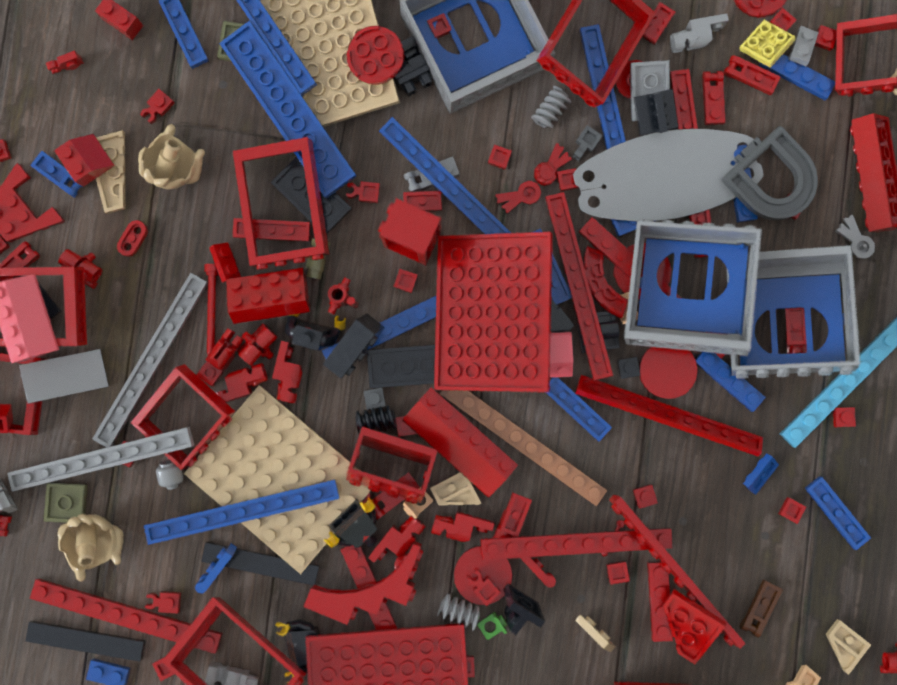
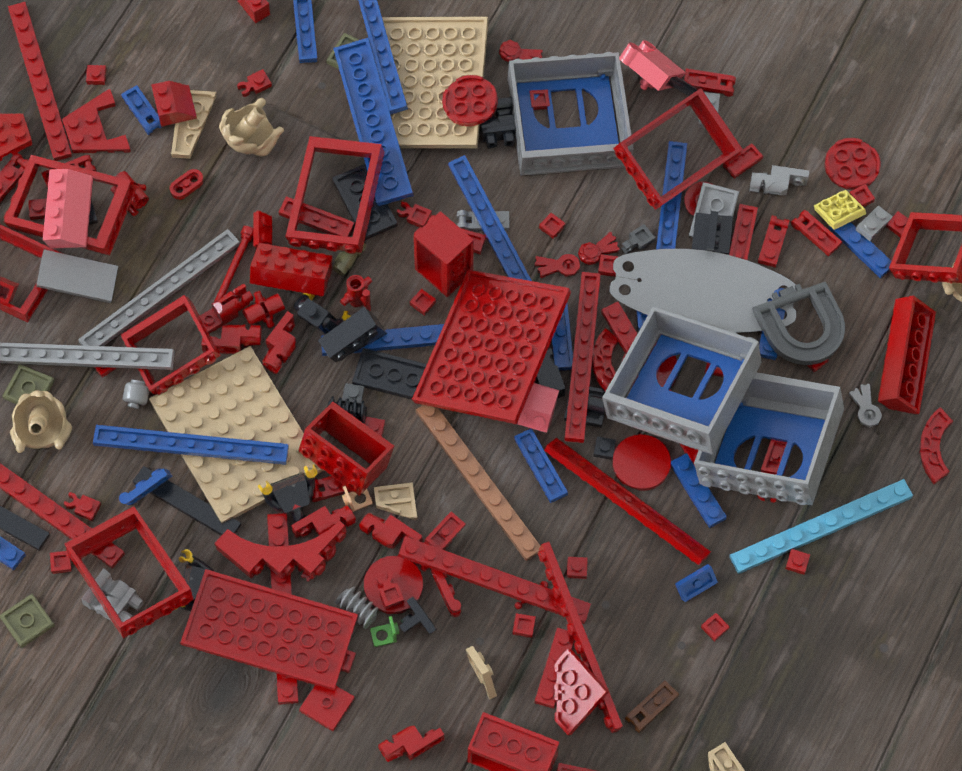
camera: 20 degrees right, 20 degrees down
(67, 61) = (189, 20): red plate -> none
(460, 442) = (418, 455): red slope -> none
(551, 107) = (615, 198): light grey piece -> none
(837, 513) = (759, 644): blue plate -> none

